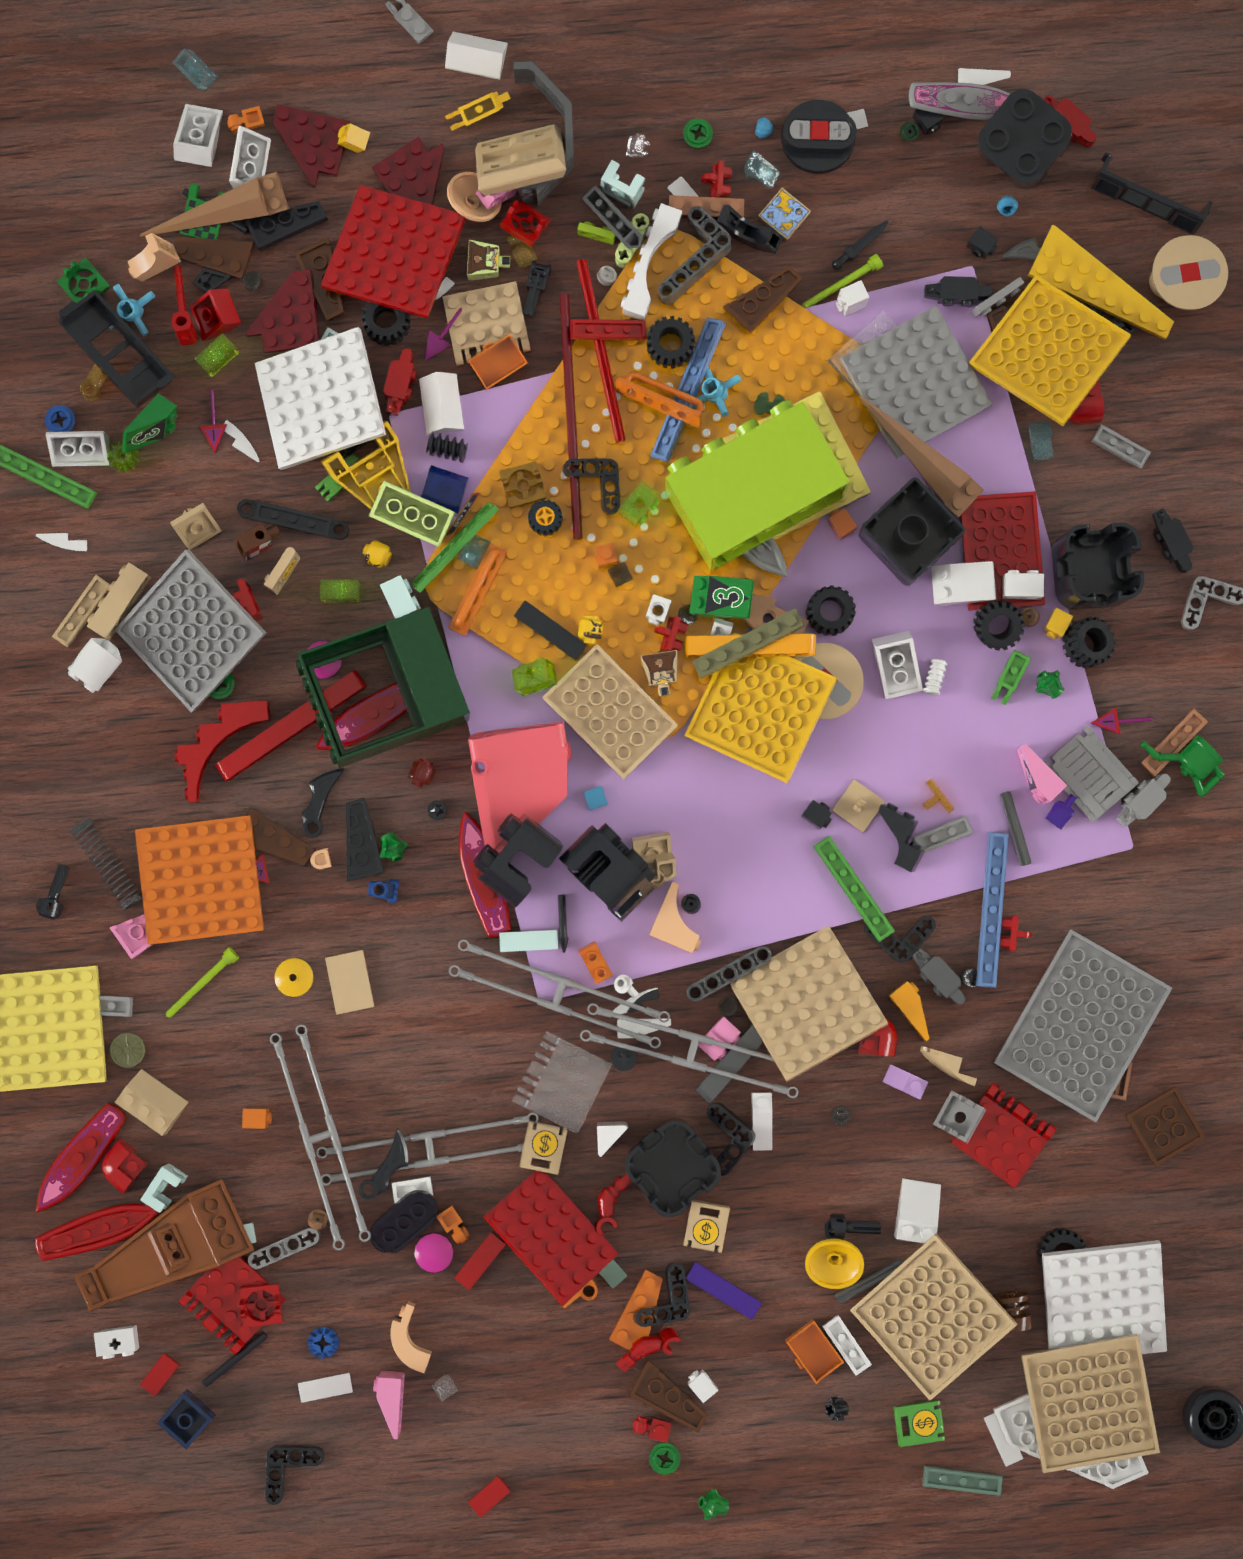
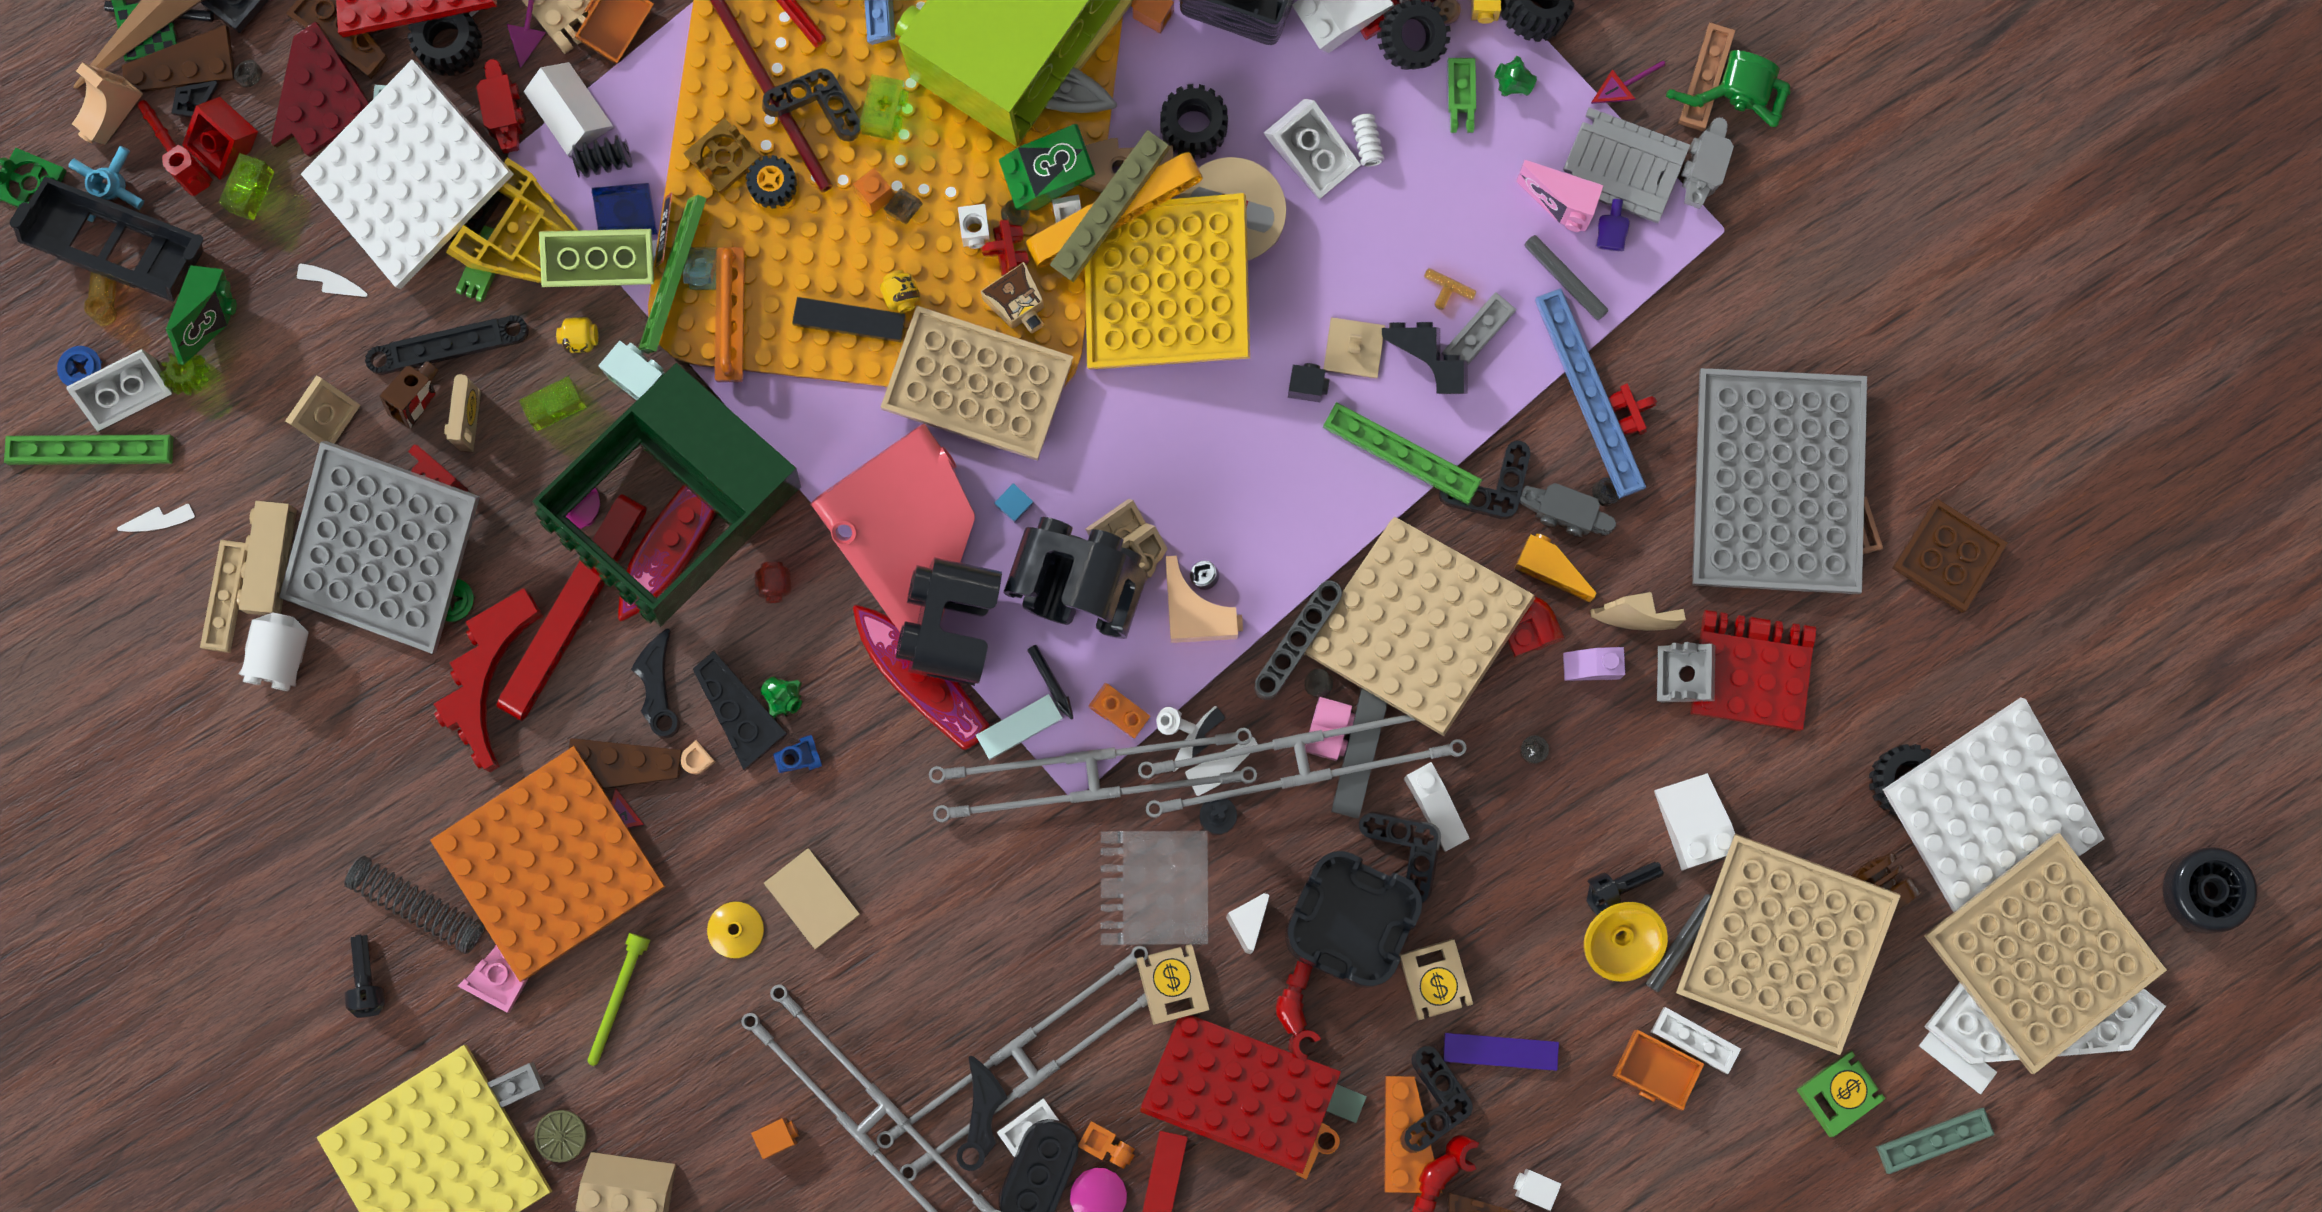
camera: 25 degrees left, 5 degrees down
(213, 432) = (290, 286): piece -> none
(437, 810) = (816, 620): black tile -> none
(534, 676) = (857, 386): clear neon green brick -> none
(836, 1408) = (1726, 1129): black gear -> none

